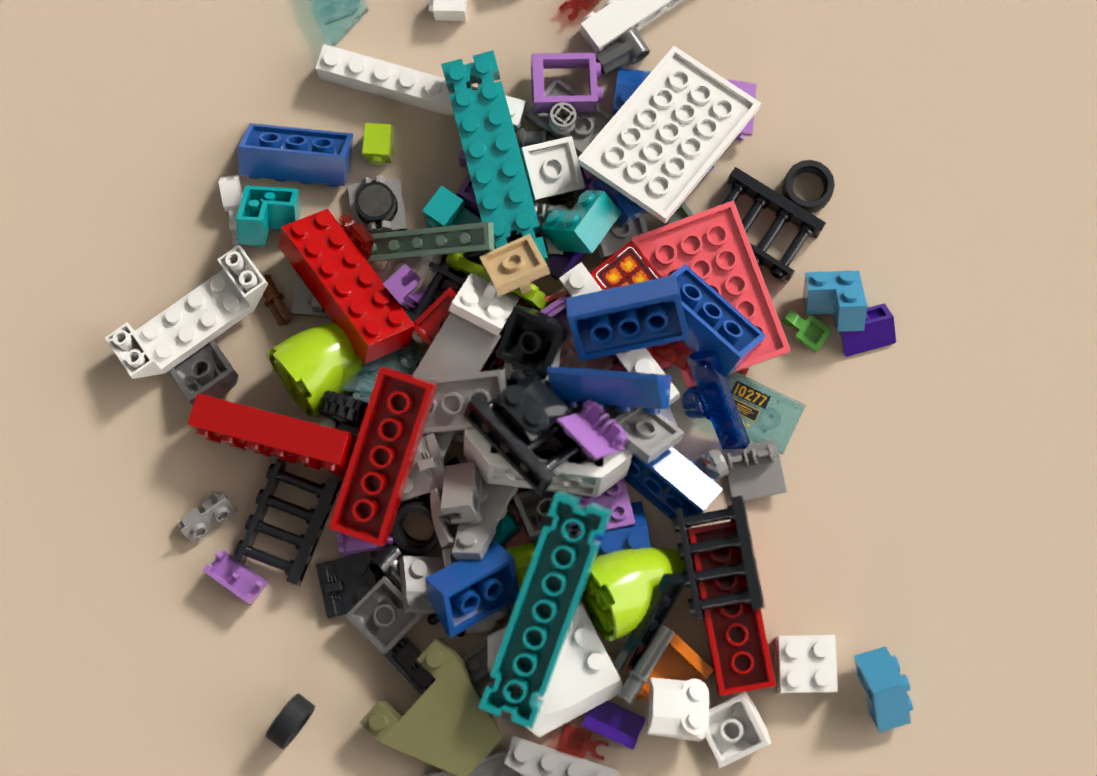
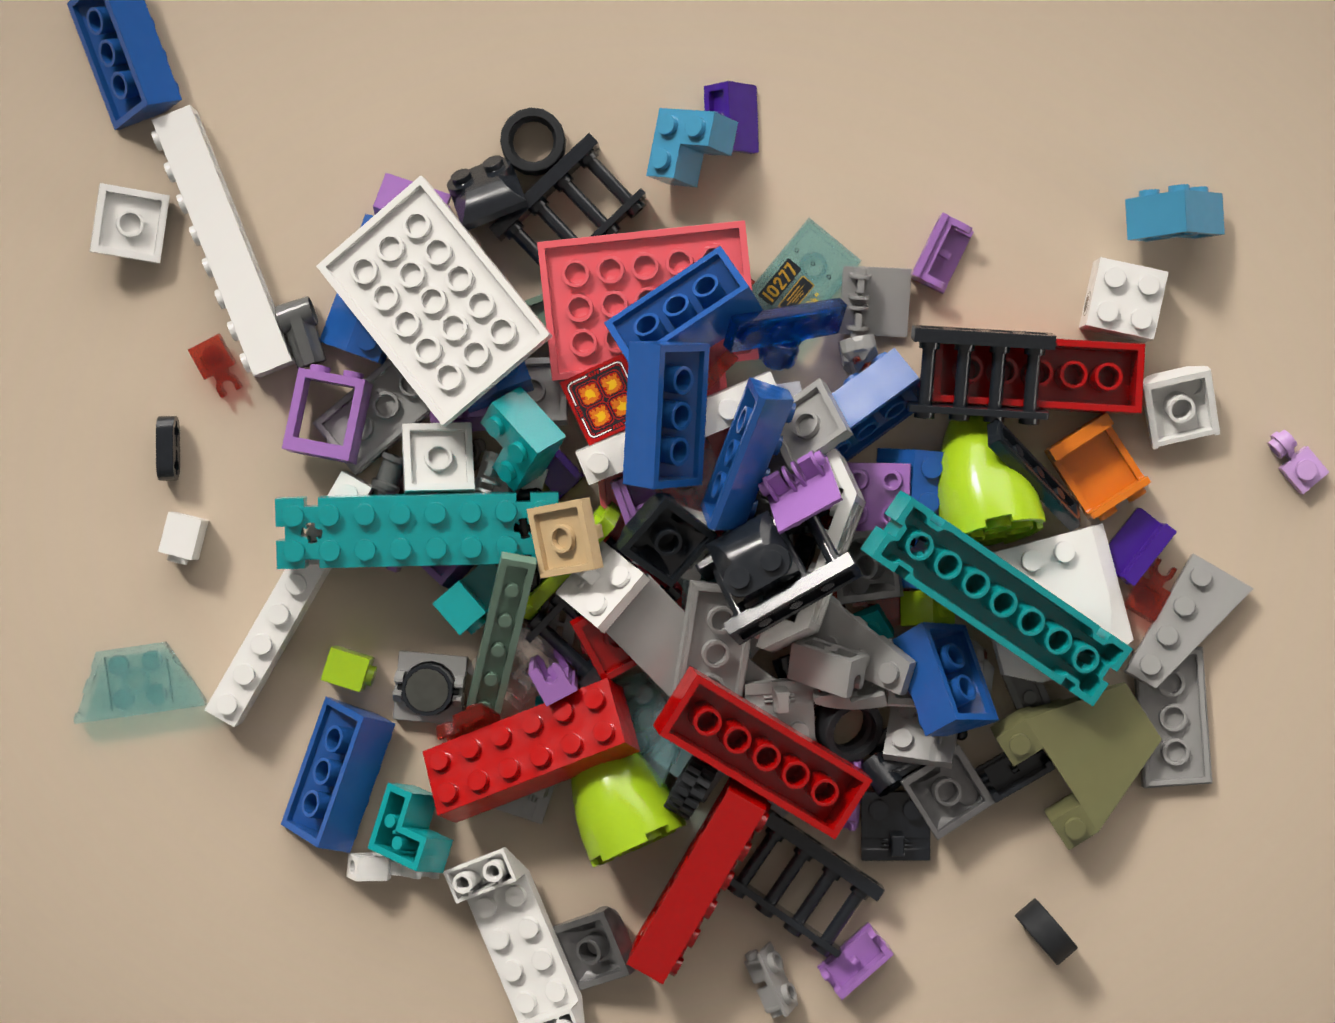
camera: 80 degrees left, 10 degrees up
(275, 302) = (524, 840): reddish brown axle -> none
(560, 125) = (383, 431): light grey wheel -> none
(646, 664) = (1083, 492): dark grey axle -> none
(678, 708) = (1142, 466): white slope -> none
(761, 158) = (486, 192): none -> black slope
(805, 513) = (942, 253): none -> medium lavender hinge
(810, 333) = (718, 188): bright green plate -> none

